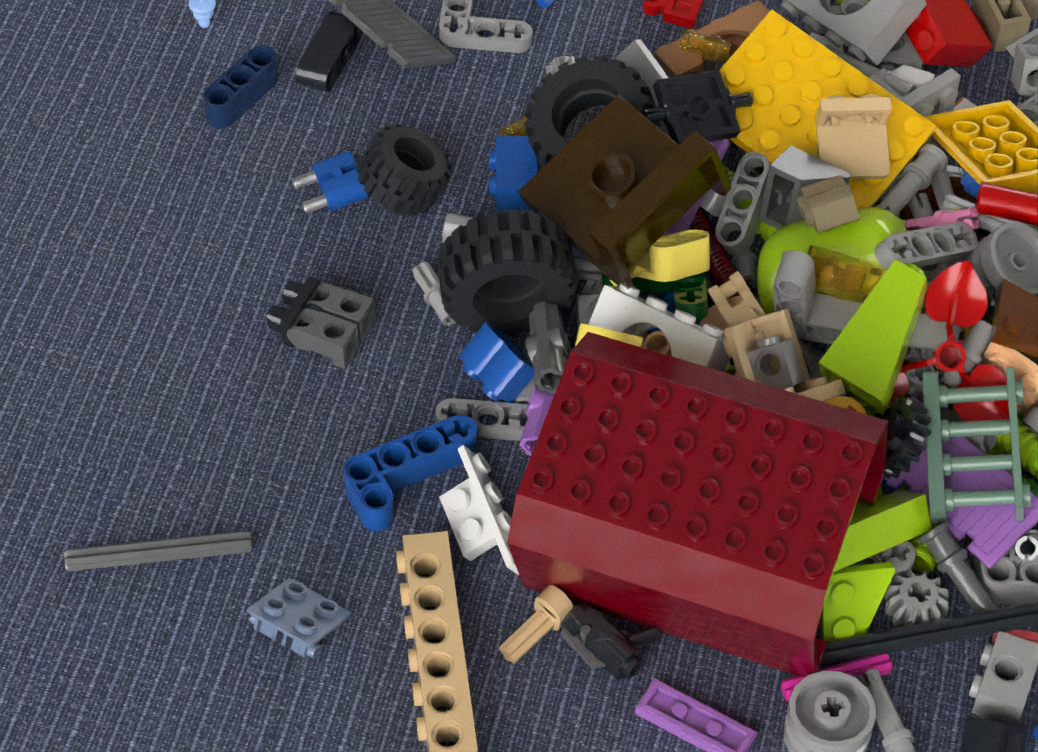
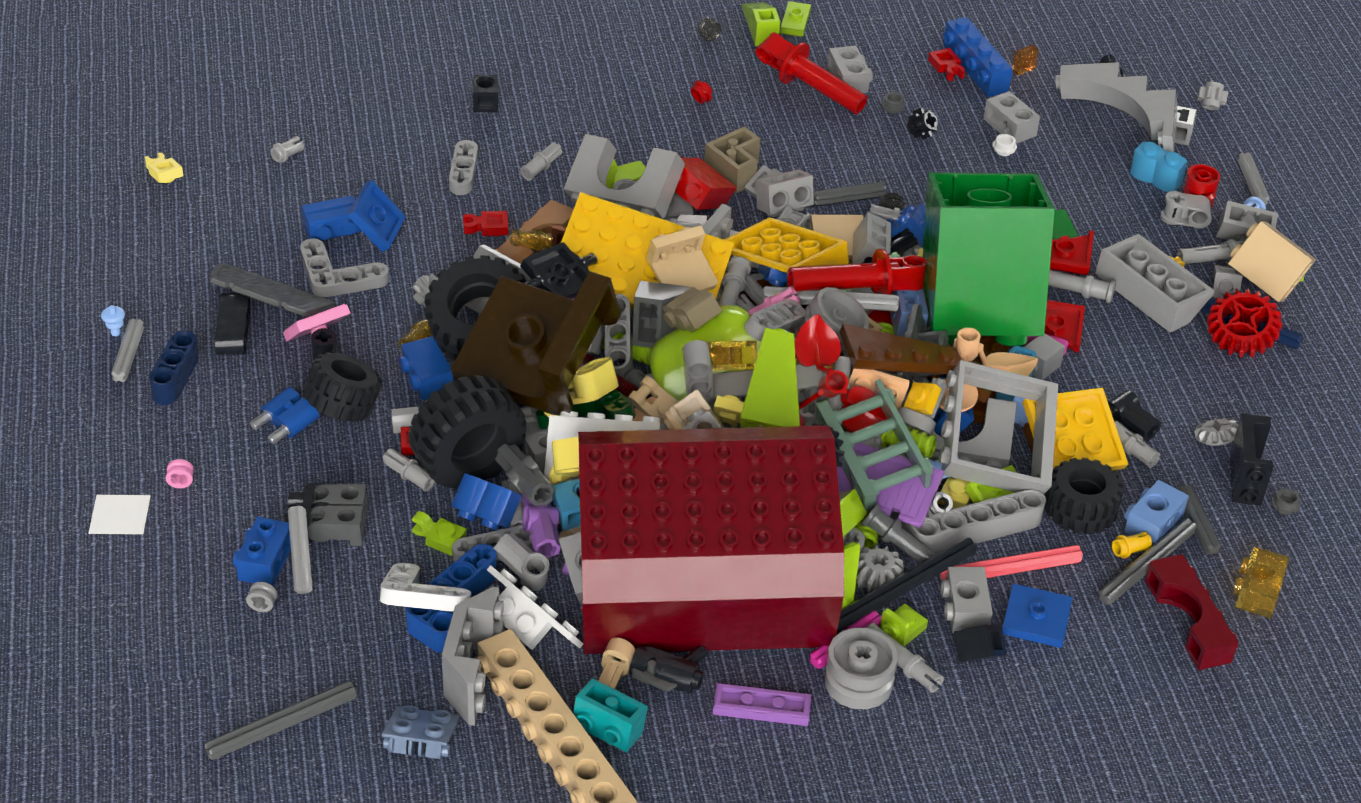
camera: 25 degrees left, 10 degrees down
(107, 245) = (119, 514): none -> white sticker
(187, 218) = (175, 473): none -> bright pink bush
(204, 49) = (127, 350): none -> light grey axle
(204, 396) = (261, 597): none -> light grey bush
(232, 342) = (263, 551): none -> blue brick
(267, 354) = (300, 549): none -> light grey axle
(350, 447) = (403, 589): none -> white beam
(397, 512) = (462, 679): none -> light grey slope
(414, 109) = (323, 342): none -> black panel
(416, 81) = (315, 322): none -> bright pink plate
(432, 384) = (438, 535): none -> lime plate
(502, 449) = (522, 560): none -> light grey piece
(507, 676) = (610, 715): none -> teal brick
(815, 341) = (728, 409): none -> light yellow plate
(913, 682) = (903, 624): none -> lime bracket

